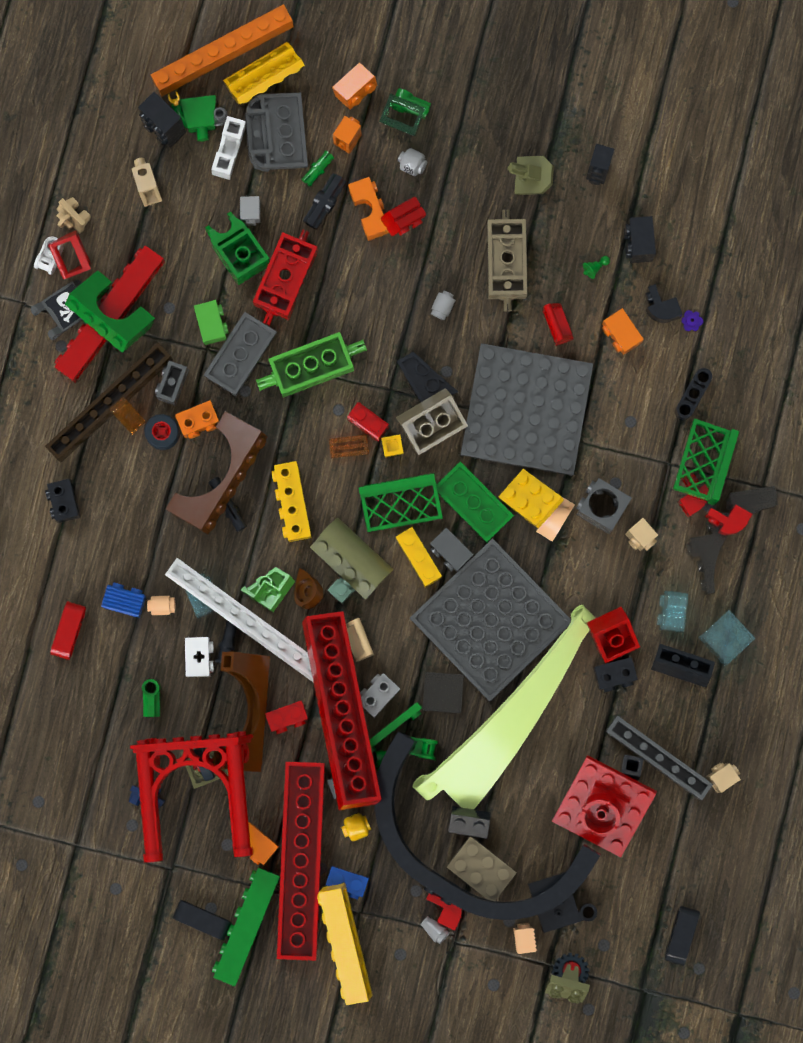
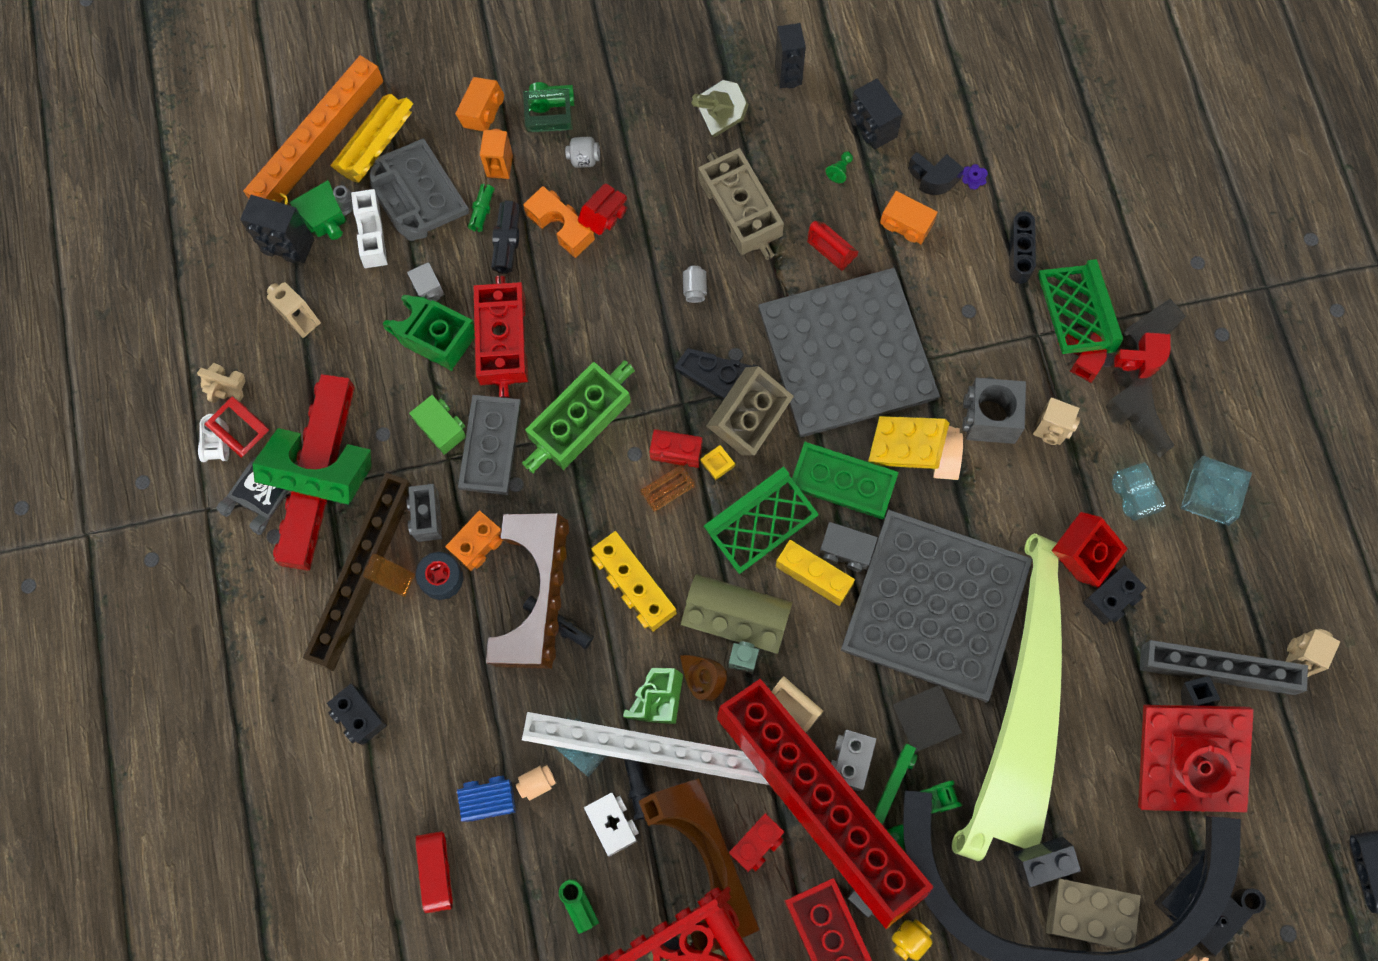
camera: 25 degrees left, 10 degrees down
(683, 665) = (1187, 545): black brick -> none

